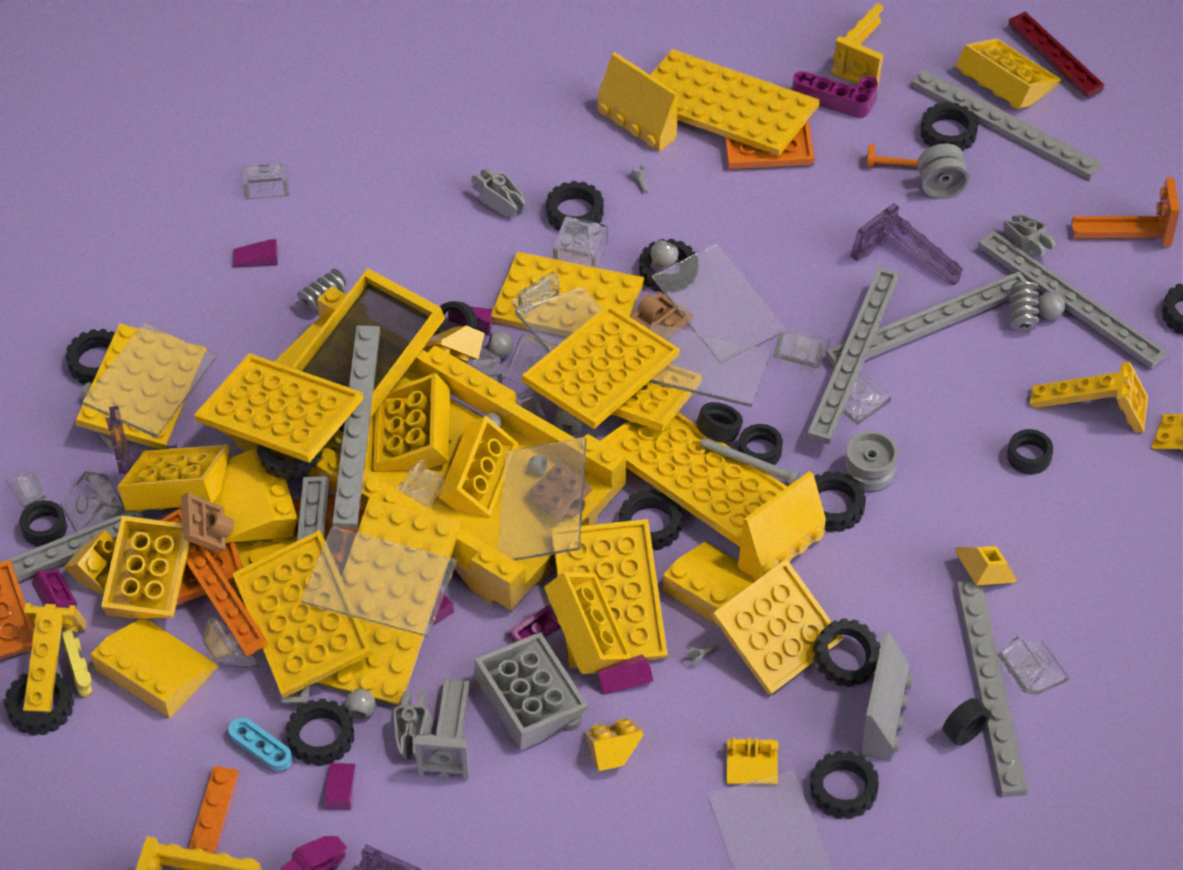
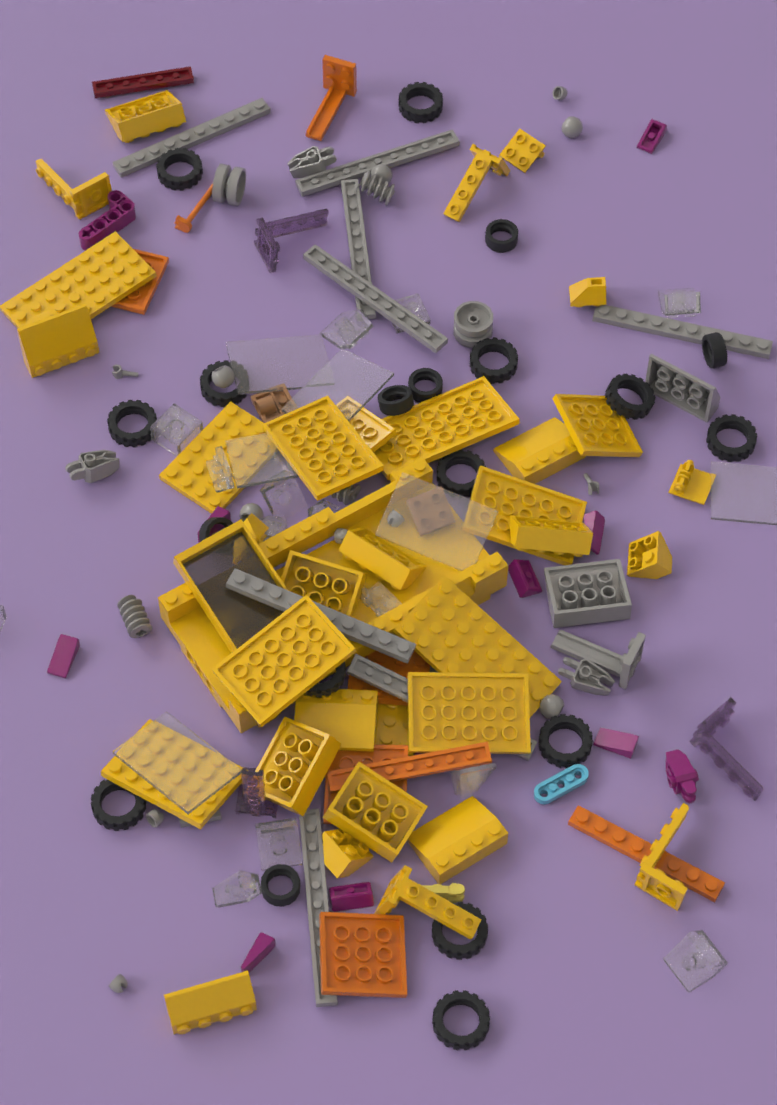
camera: 70 degrees left, 5 degrees up
(205, 523) = (352, 751): medium nougat plate -> none
(379, 581) = (472, 647): clear piece -> none
(751, 461) = (465, 375): light grey bar -> none
(782, 527) = (519, 395): yellow slope -> none

